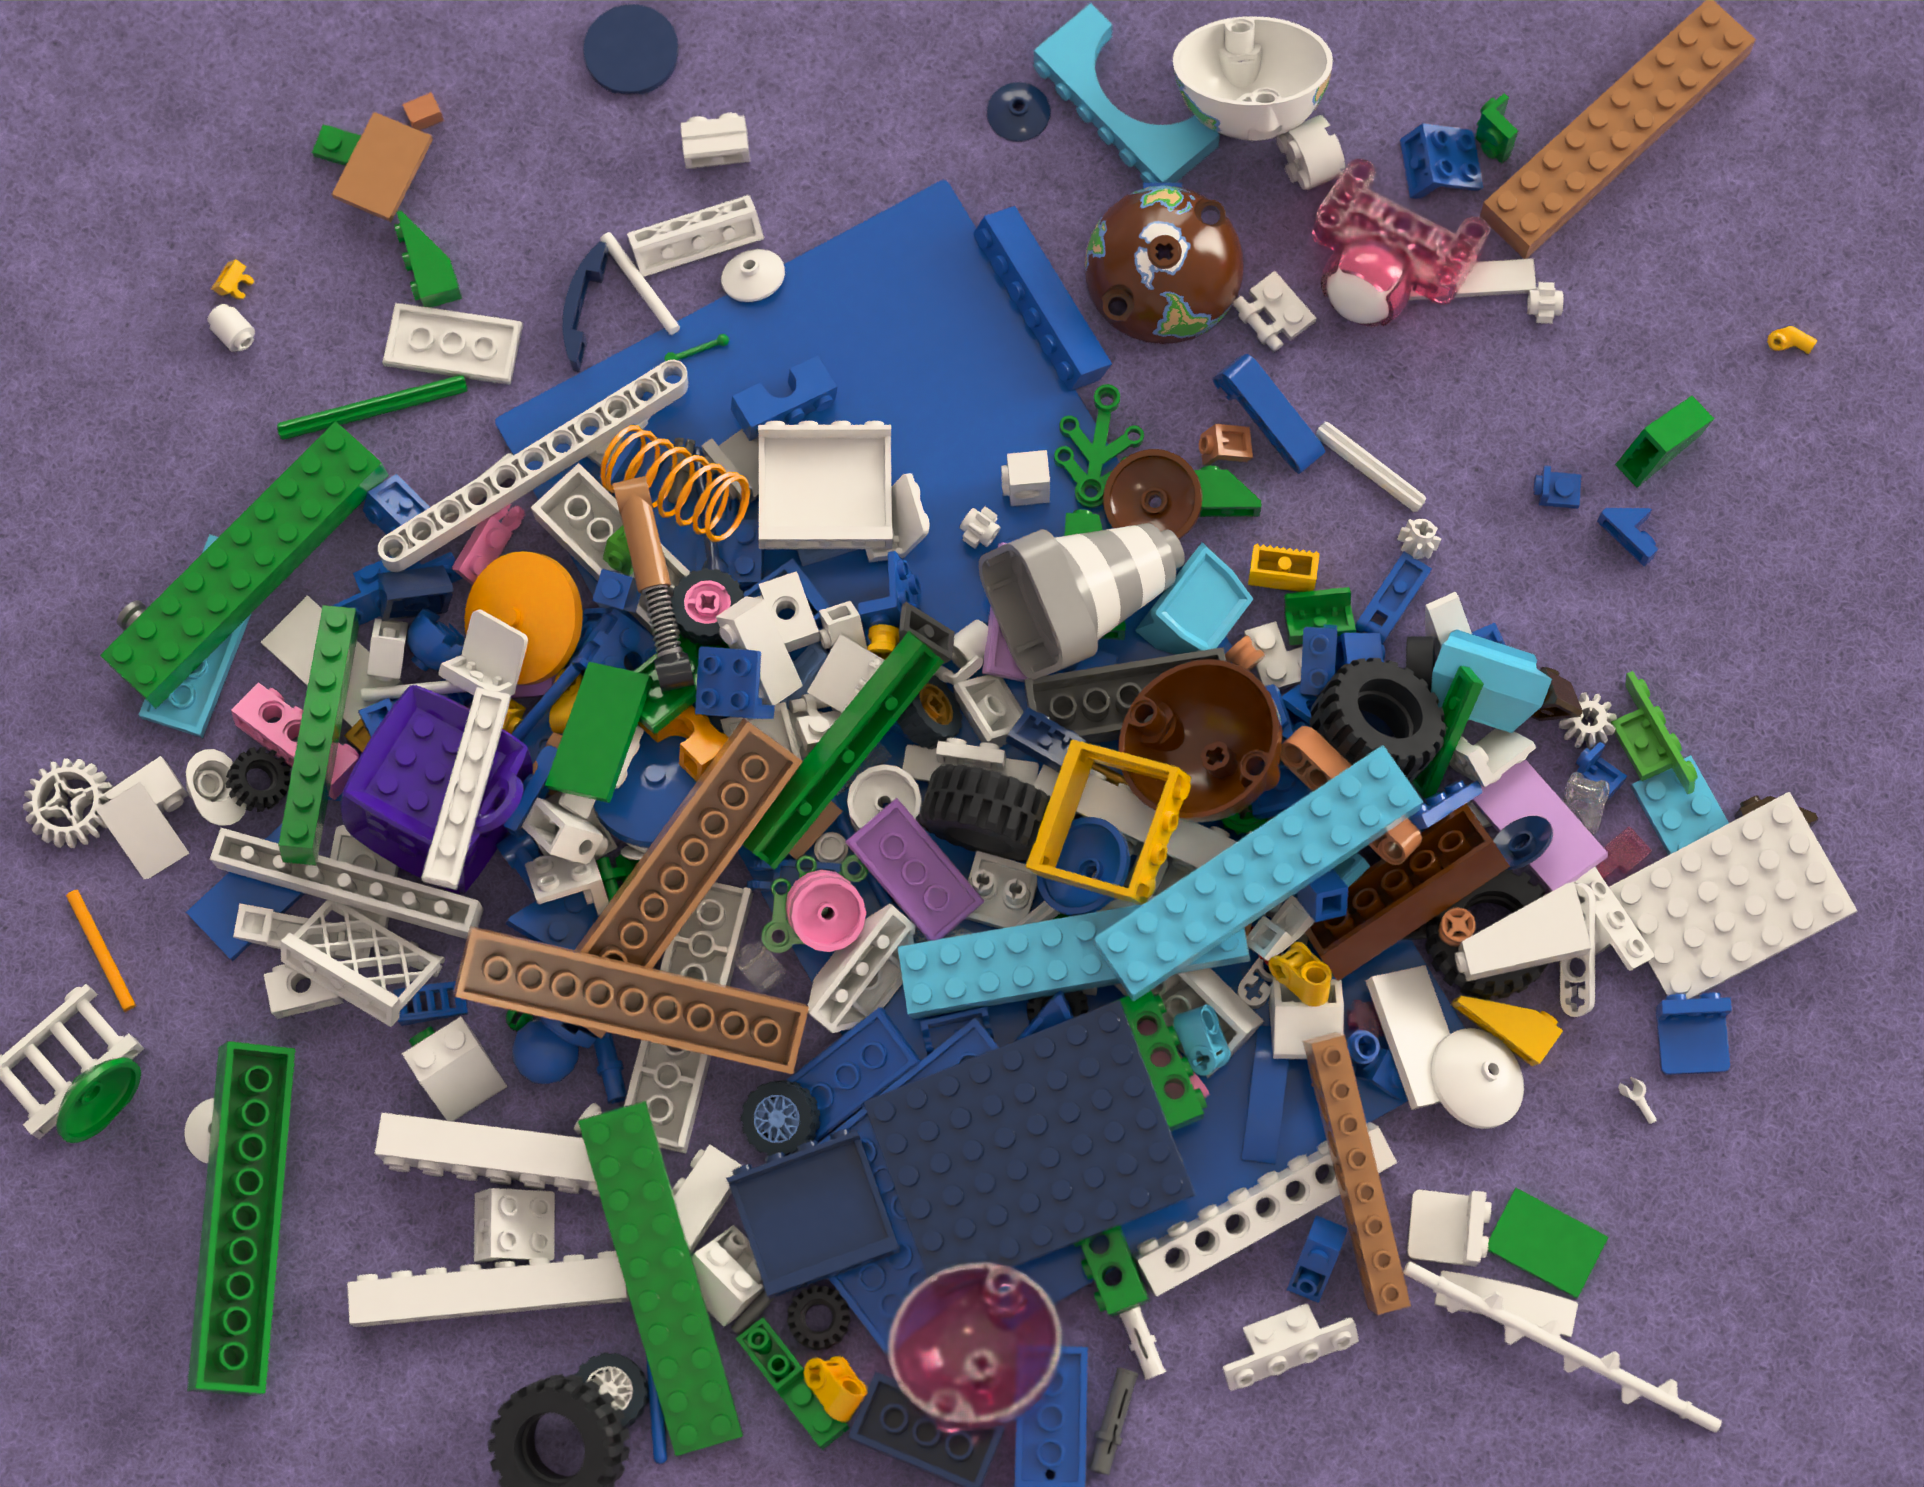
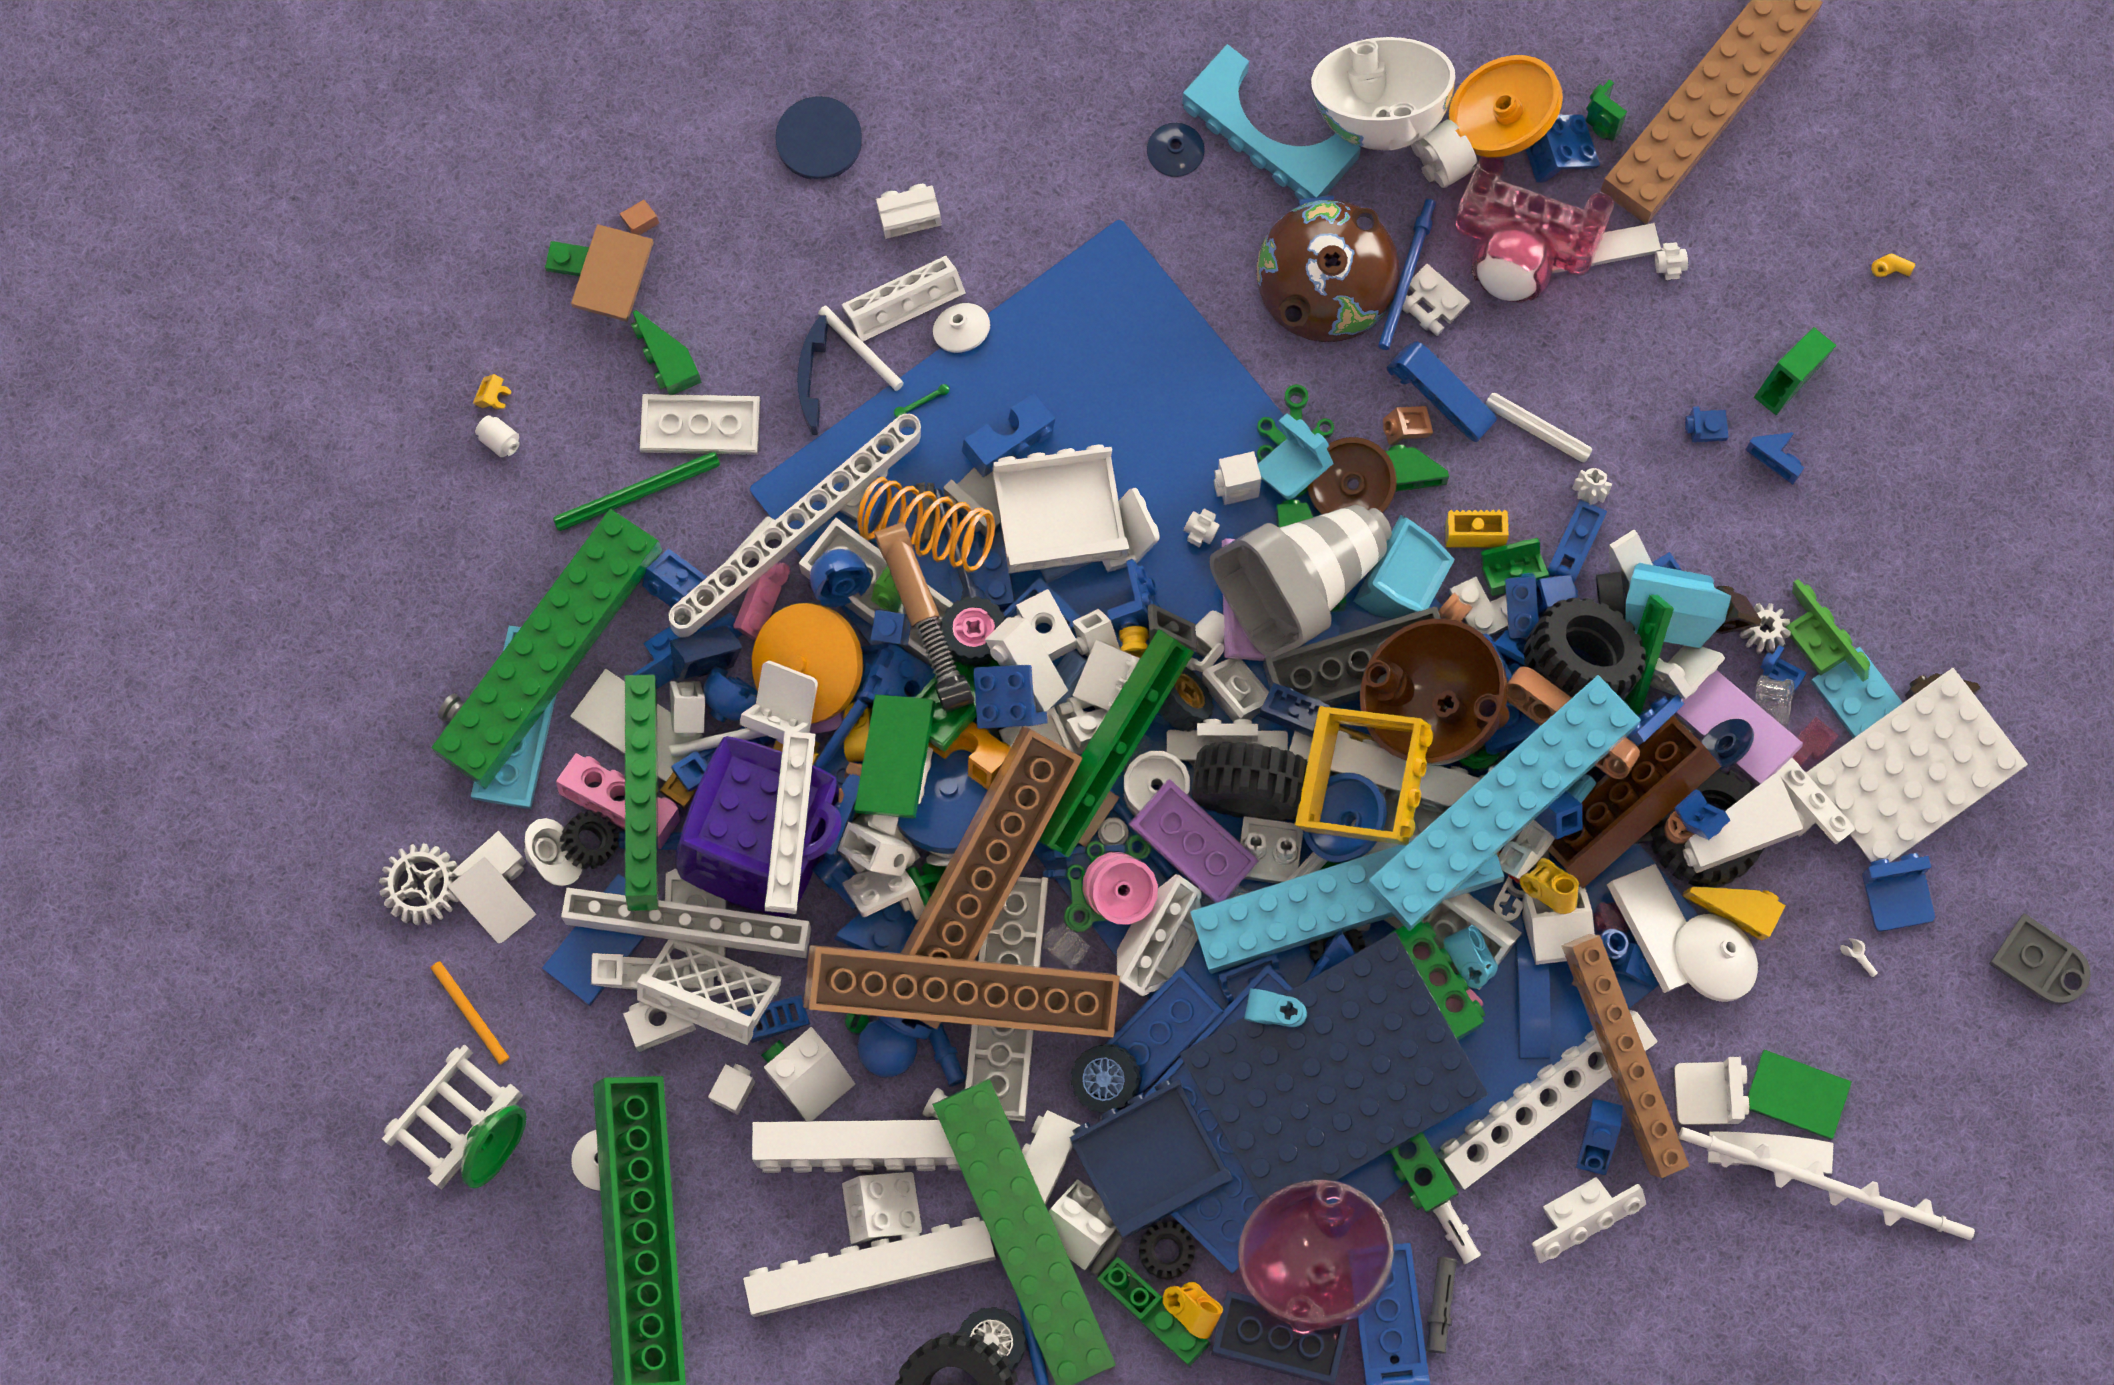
camera: 10 degrees left, 0 degrees up
(370, 1072) = (732, 1088): none -> white brick
(568, 528) = (838, 576): none -> blue cylinder
(968, 1066) = (1269, 1009): none -> medium azure piece
(1042, 298) = (1224, 315): blue brick -> none
(1093, 467) = (1295, 460): none -> medium azure bracket
(1275, 231) = (1421, 228): none -> blue bar
(1387, 108) = (1506, 105): none -> light orange dish
(1477, 918) = (1700, 816): none -> blue bracket
(1566, 976) = (1798, 868): white beam -> none
(1841, 1132) = (2040, 962): none -> dark grey plate

